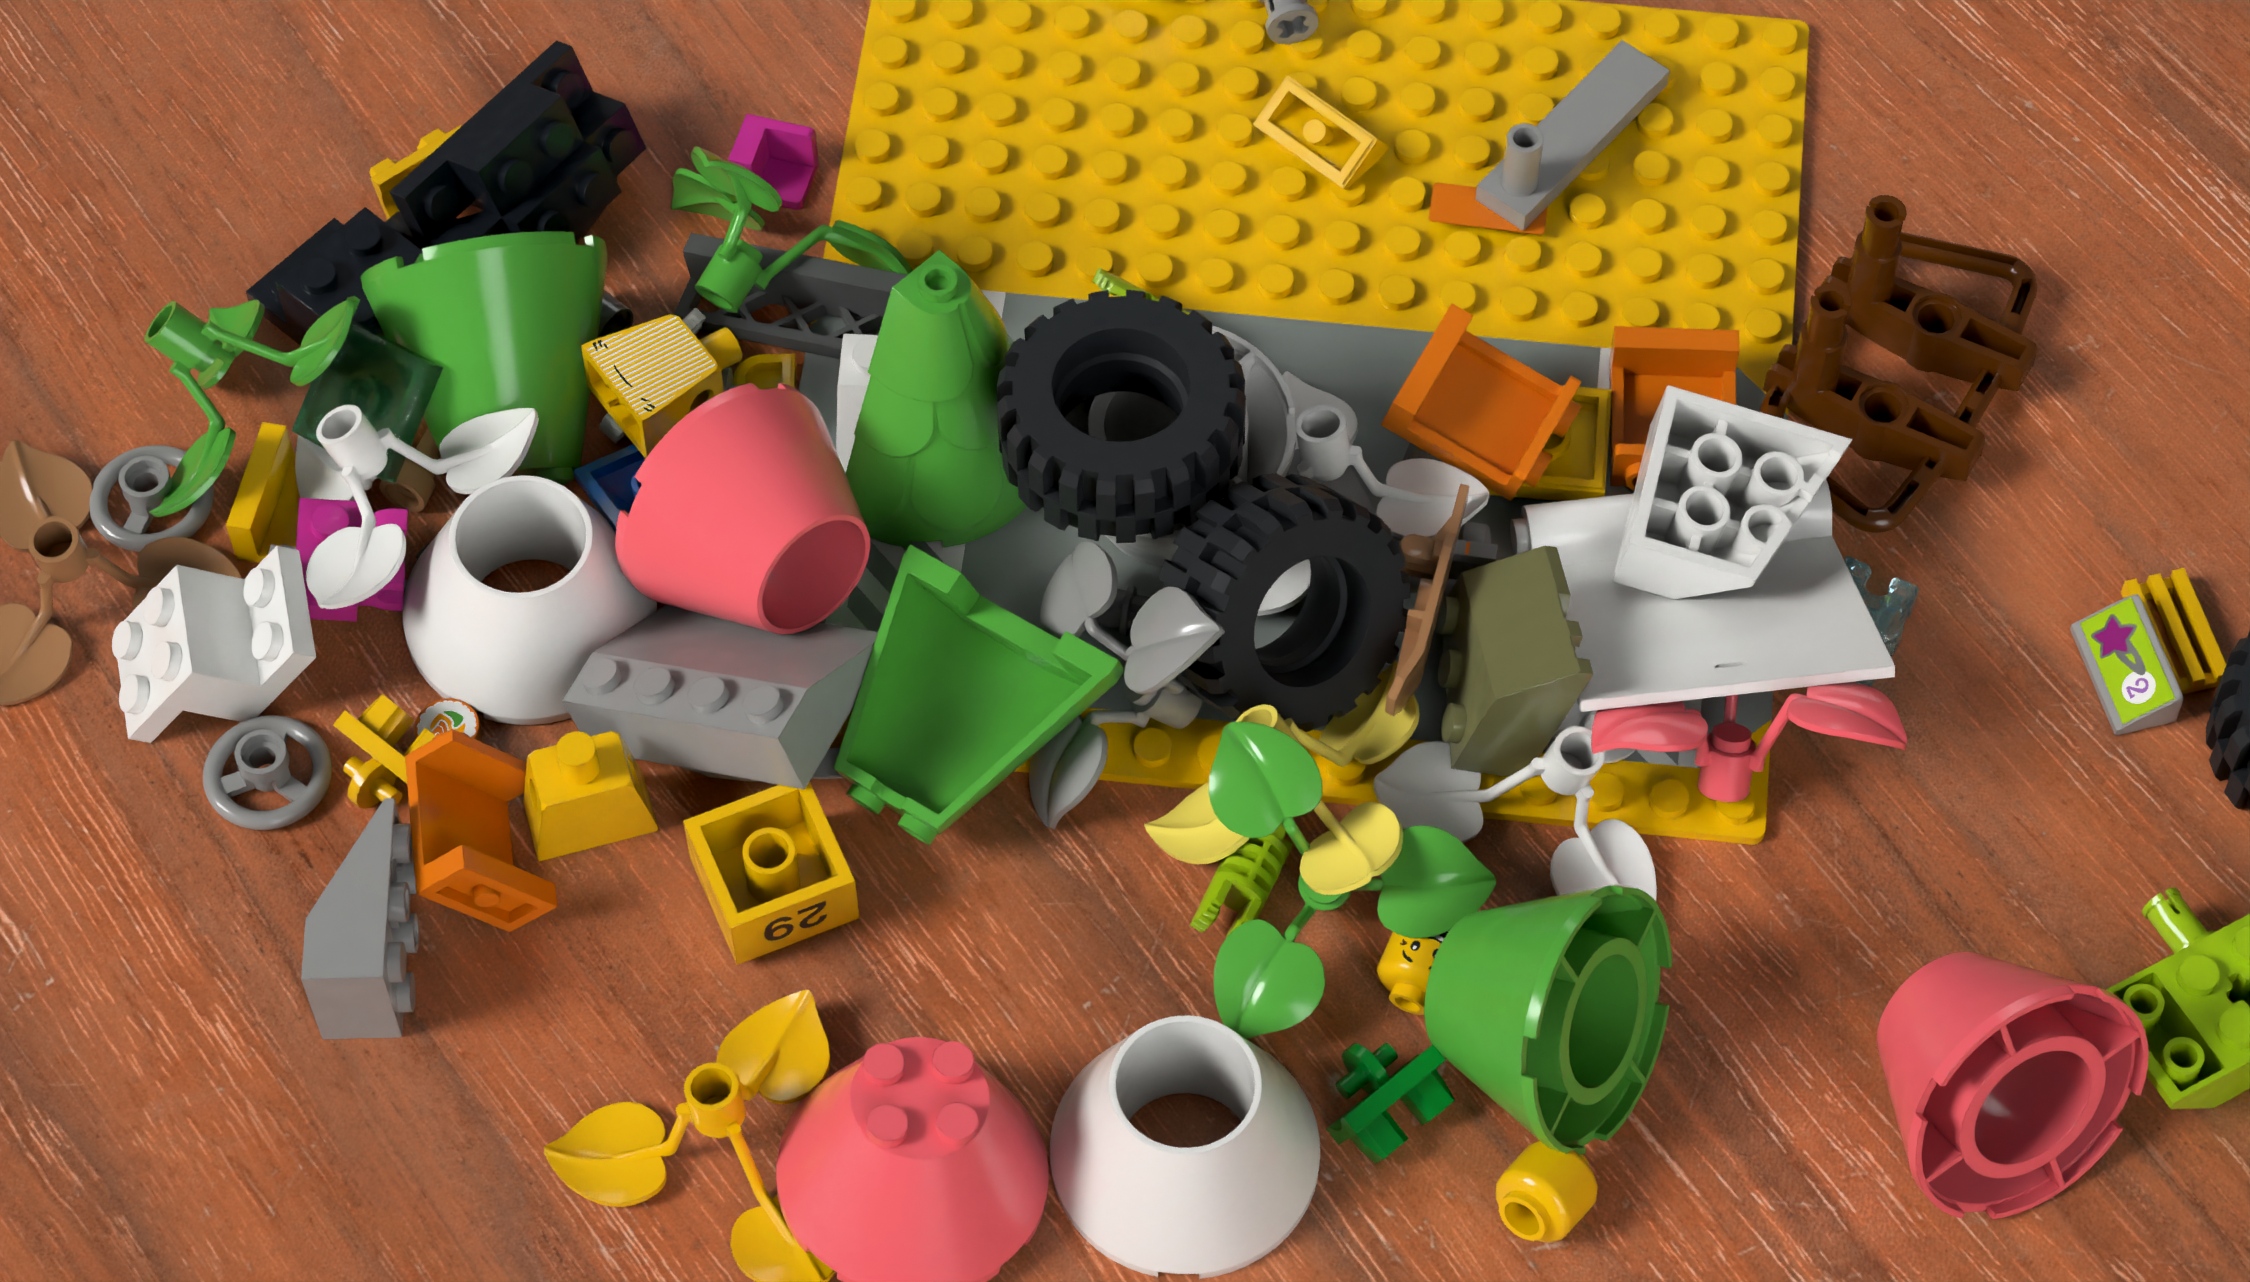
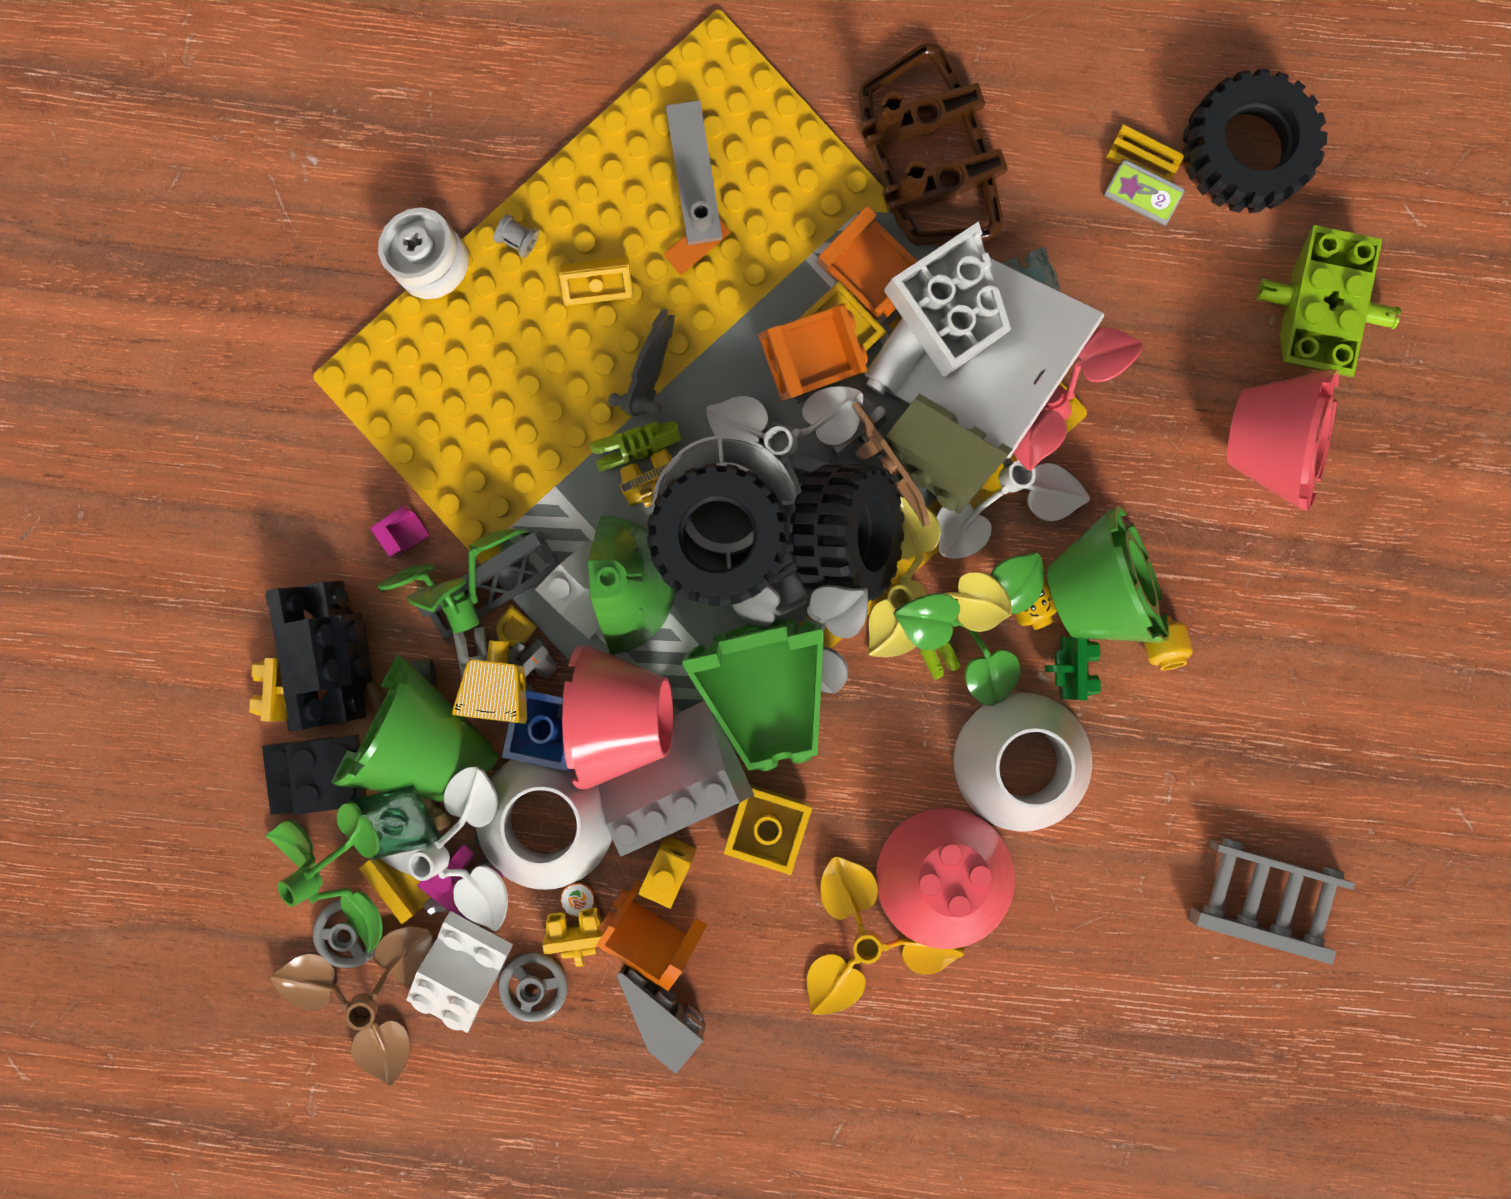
camera: 50 degrees left, 30 degrees up
(1264, 261) = (646, 371): none -> dark grey piece

